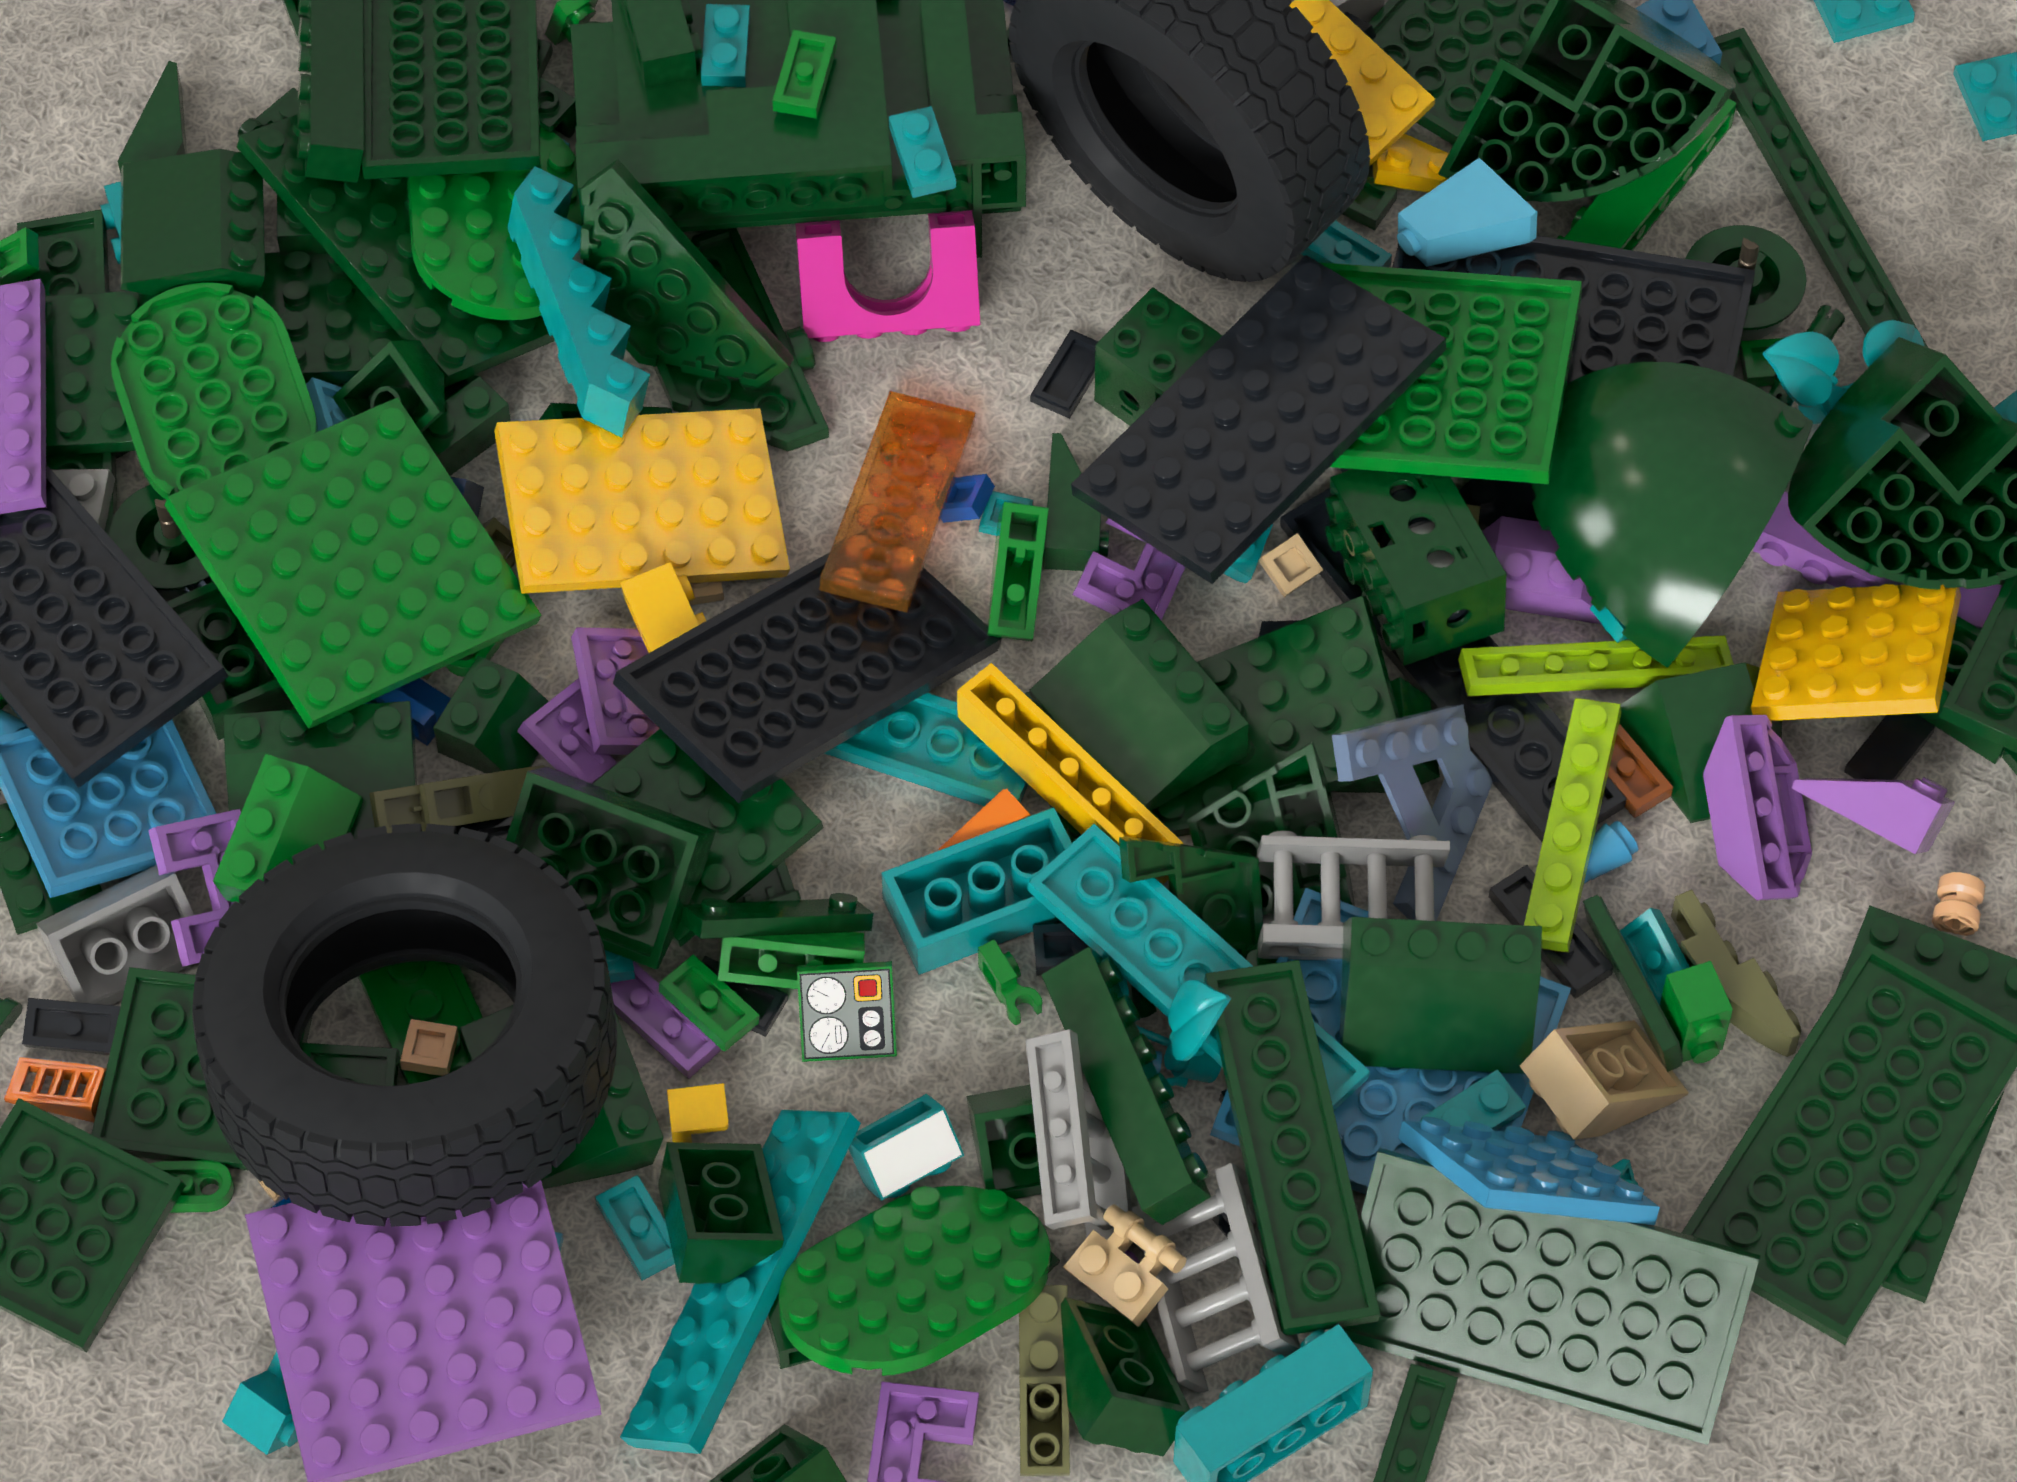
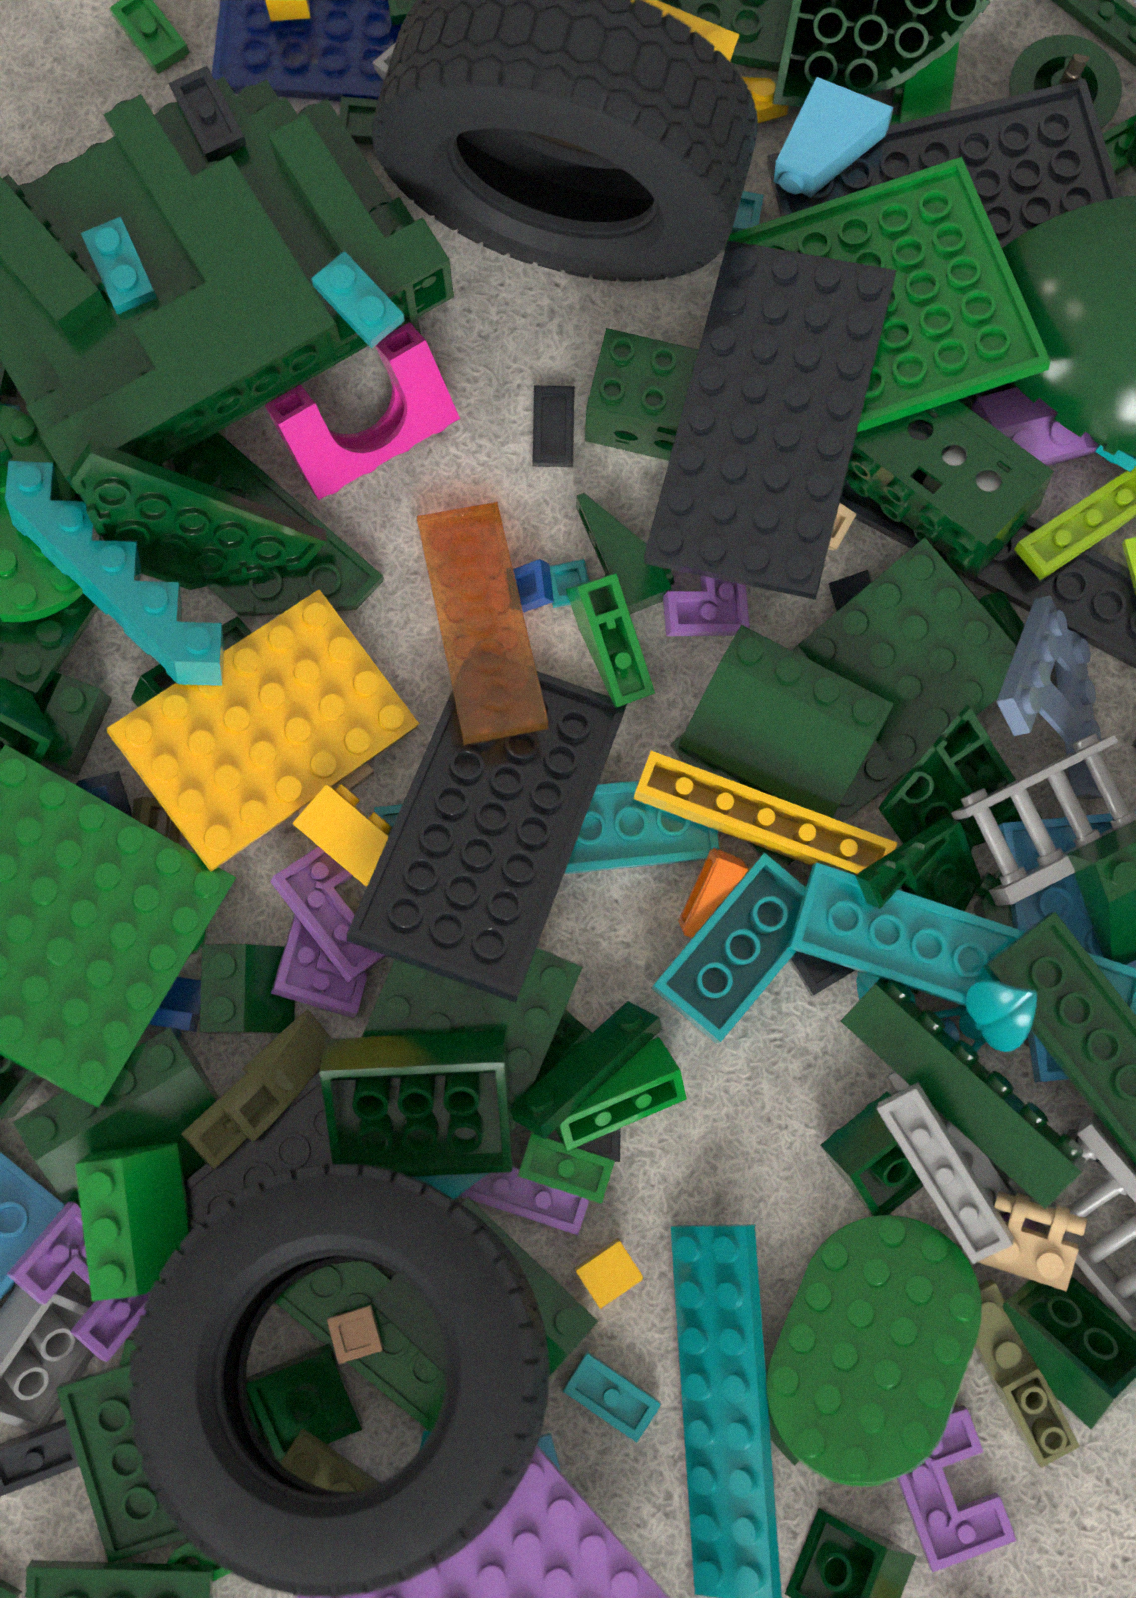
camera: 30 degrees left, 20 degrees up
(68, 1105) = (86, 1520): orange slope -> none
(718, 1209) = (680, 1365): dark green slope -> none
(801, 348) = (320, 510): dark green tile -> none
(804, 74) = (212, 270): green plate -> none
(846, 1010) = (683, 1117): tile -> none
(905, 1147) = (796, 1218): brick -> none
(1002, 974) = (787, 1013): green plate -> none

